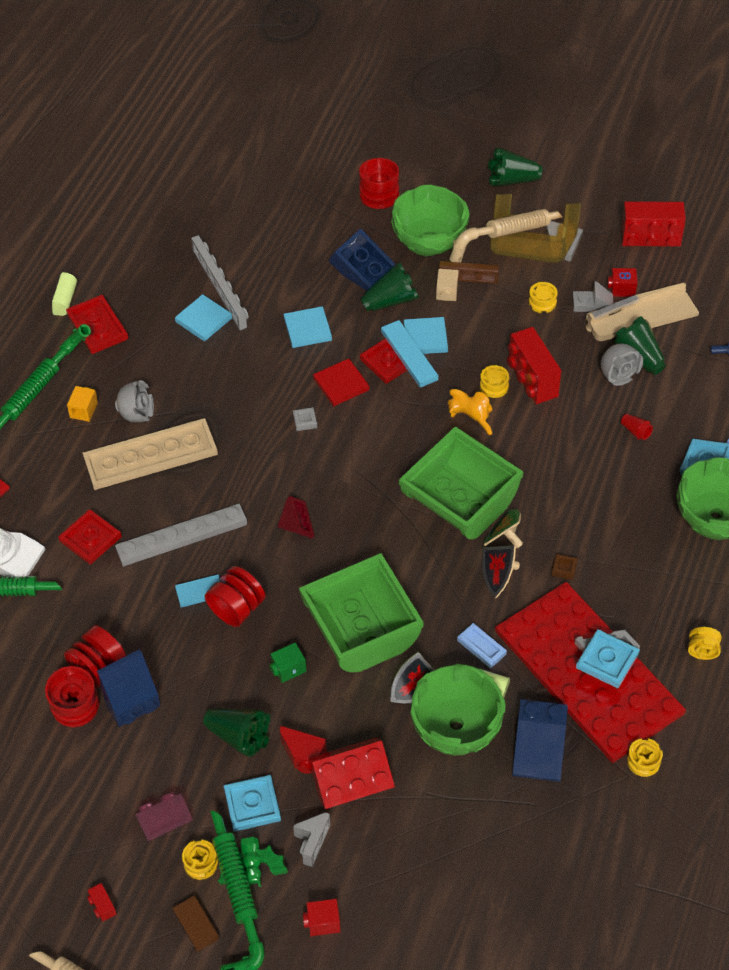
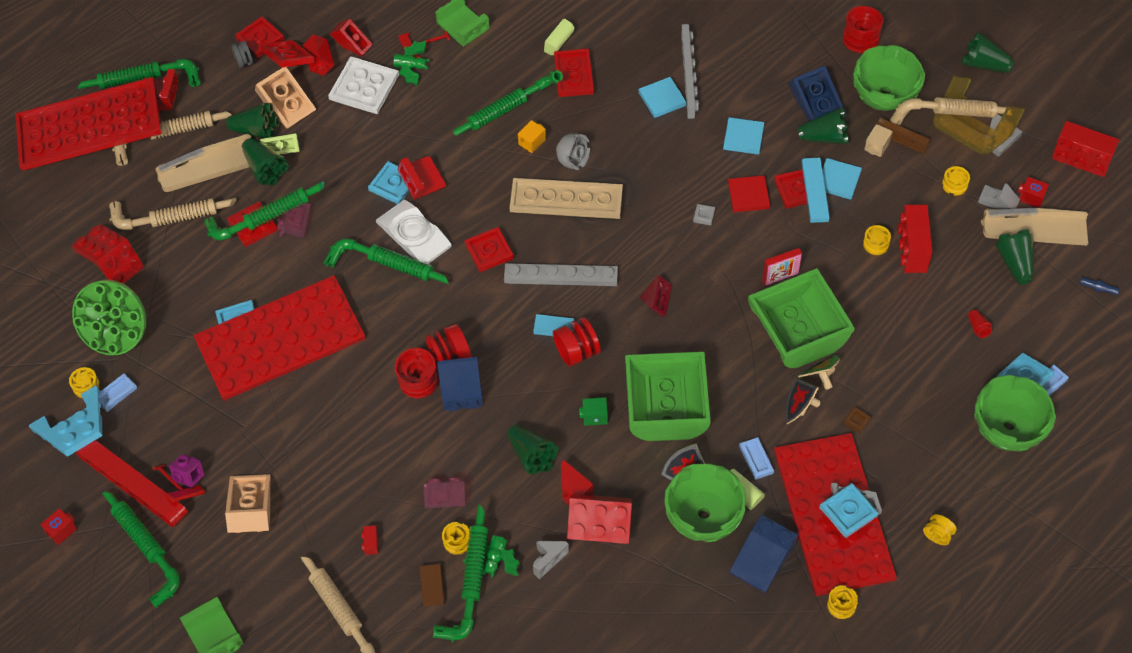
camera: 25 degrees right, 5 degrees up
(252, 803) = (516, 511): medium azure tile -> none
(322, 917) = (527, 621): red brick -> none
(414, 440) = (781, 266): none -> tile
(475, 407) = (849, 256): light orange animal -> none
(621, 363) = (992, 264): light grey cylinder -> none

